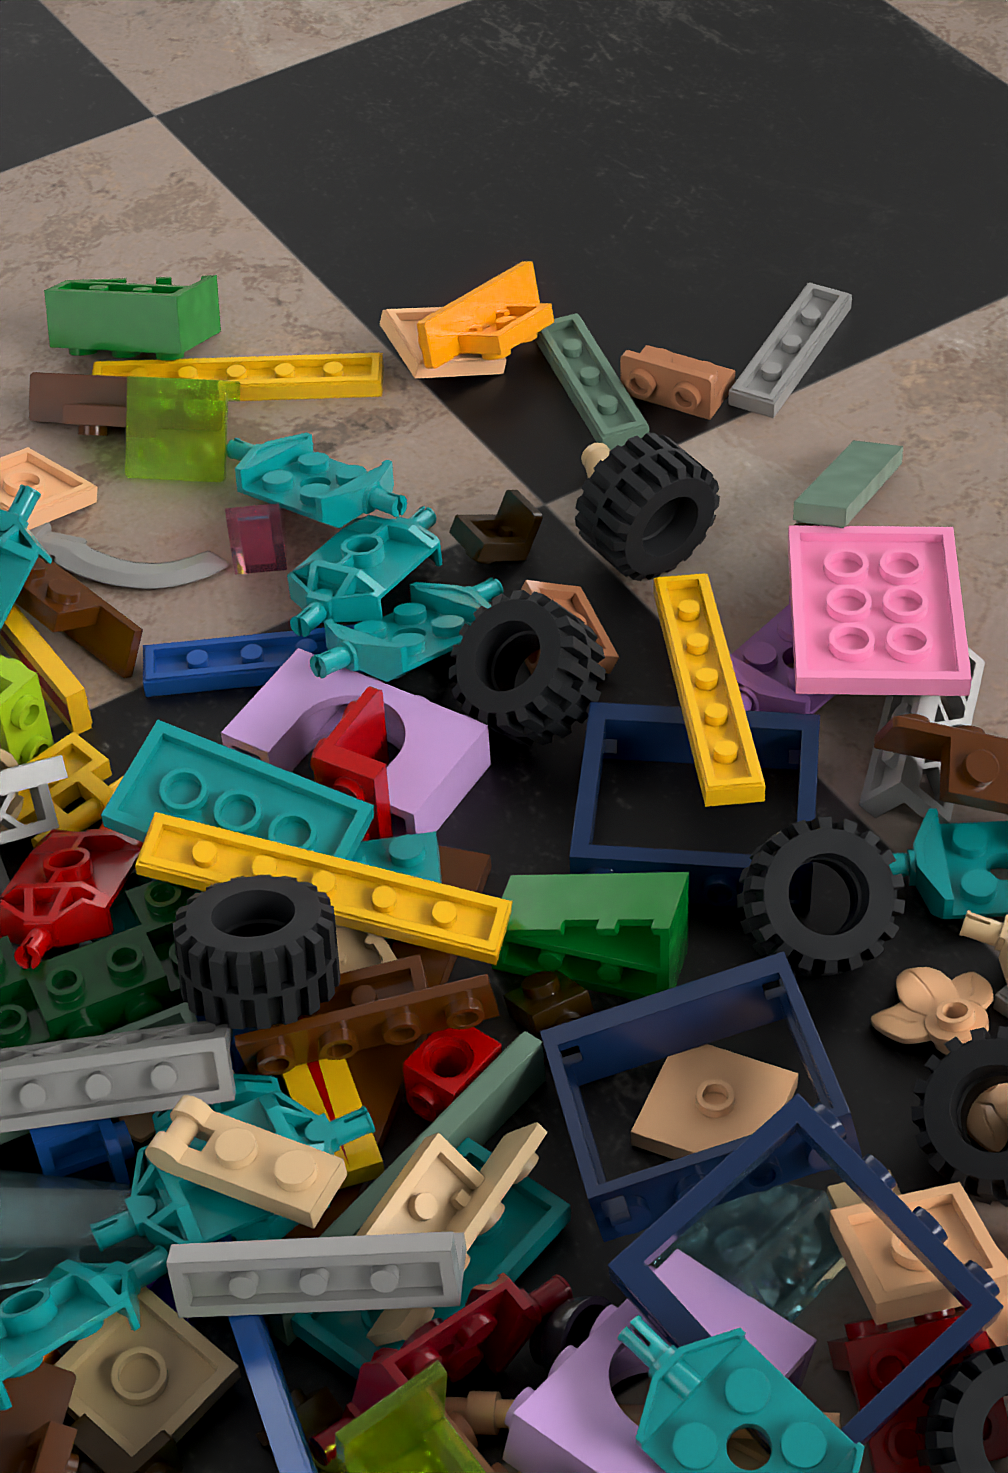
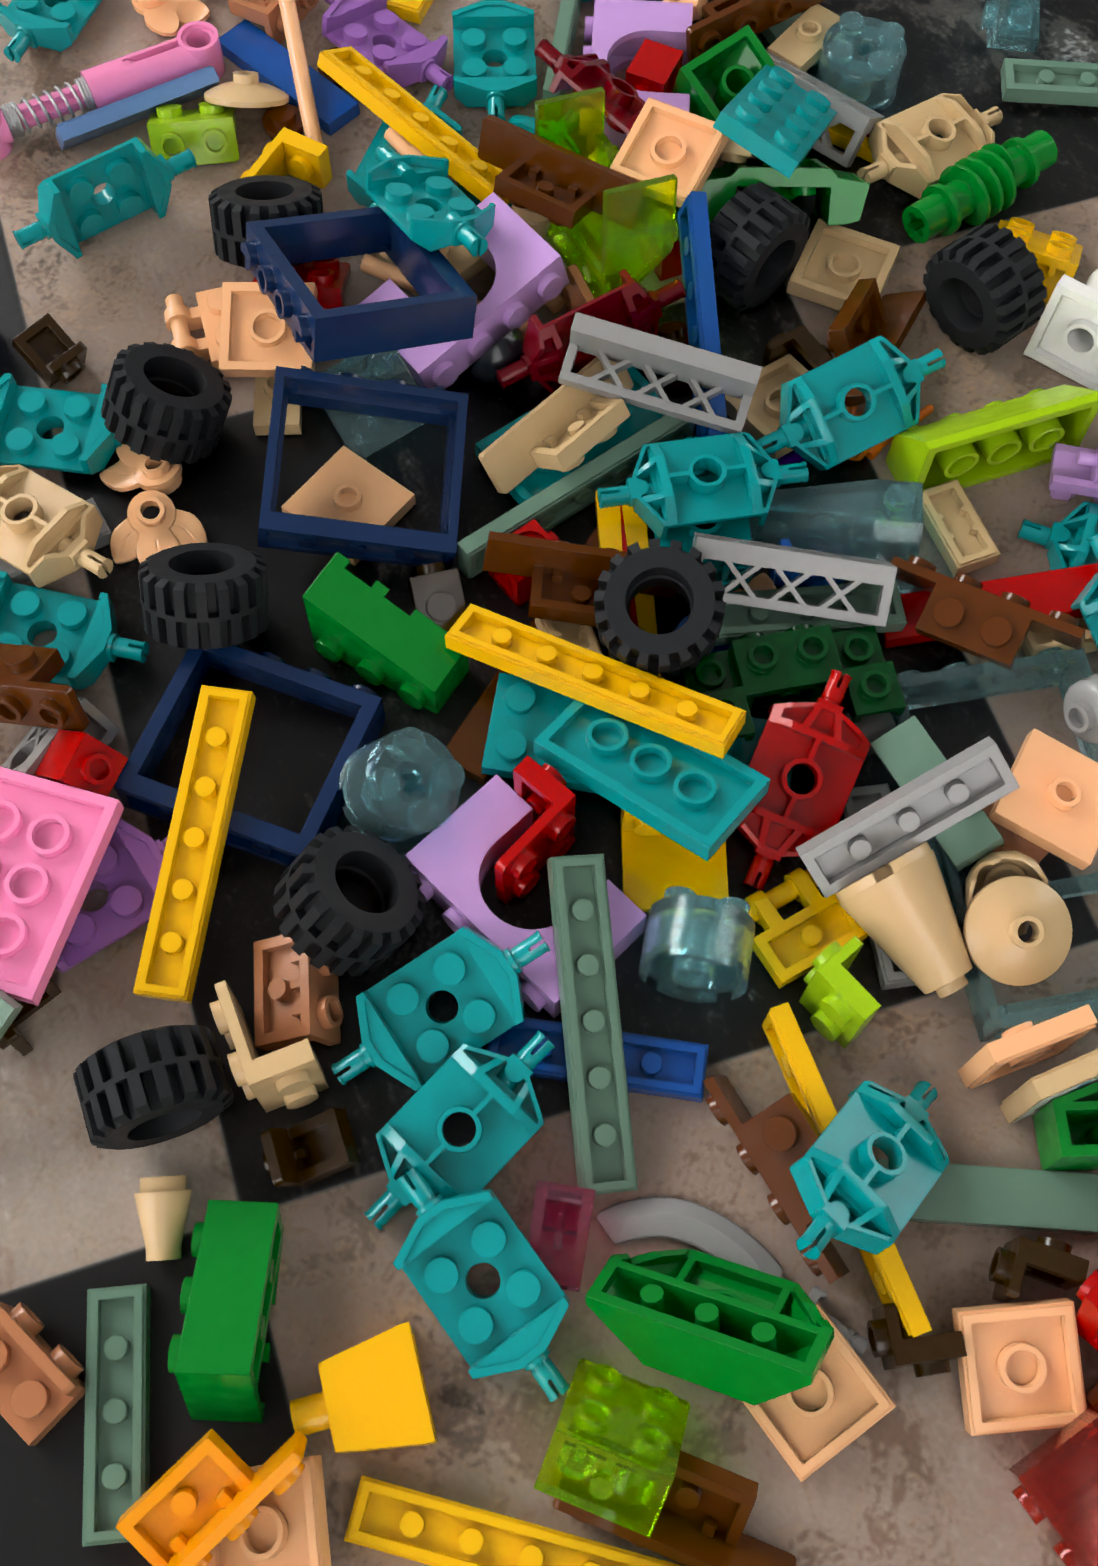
camera: 170 degrees left, 20 degrees up
(107, 488) = (713, 1322): none -> green wedge
(163, 693) = (698, 945): none -> clear light blue brick
(247, 1162) = (696, 448): tan plate -> none
(262, 649) = (591, 1024): none -> sand green tile
(385, 413) = (371, 1396): none -> yellow torso
(514, 777) = (401, 785): none -> clear light blue brick
(521, 420) = (228, 1310): none -> green wedge
(559, 545) = (276, 1079): none -> tan bracket
(853, 716) = (81, 762): none -> red brick

